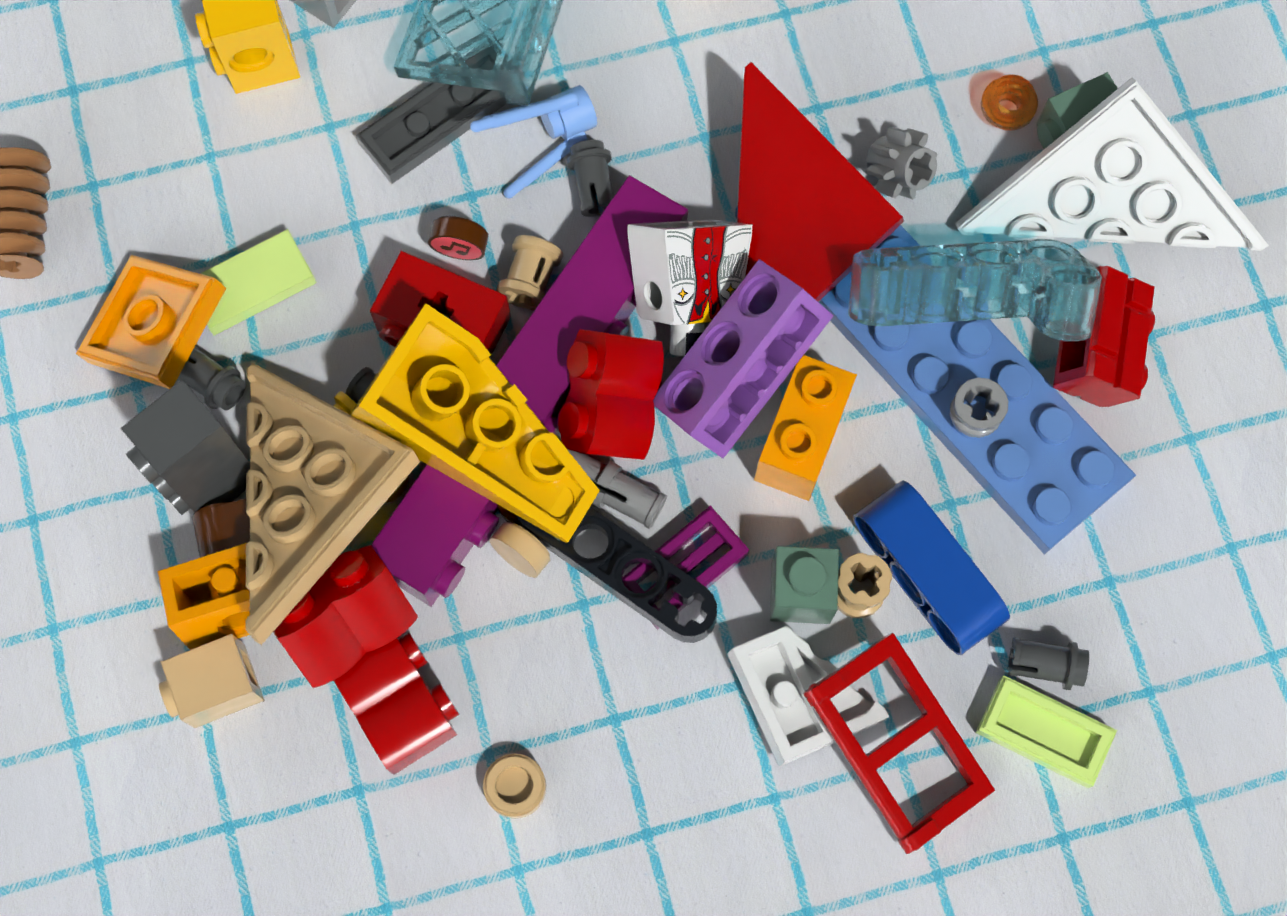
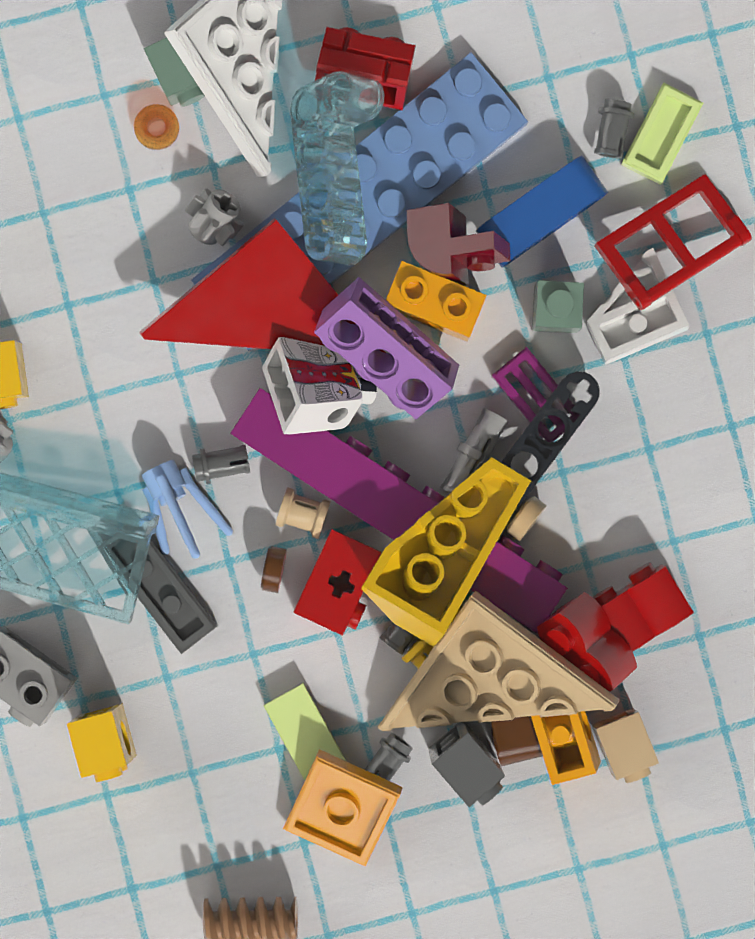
camera: 90 degrees left, 15 degrees up
(514, 786) = (699, 521): tan tile -> none
(611, 394) = (412, 448): red brick -> none
(861, 568) = (558, 250): tan bush -> none
(879, 436) = (442, 245): none -> brick
(995, 401) = (417, 156): light grey bush -> none

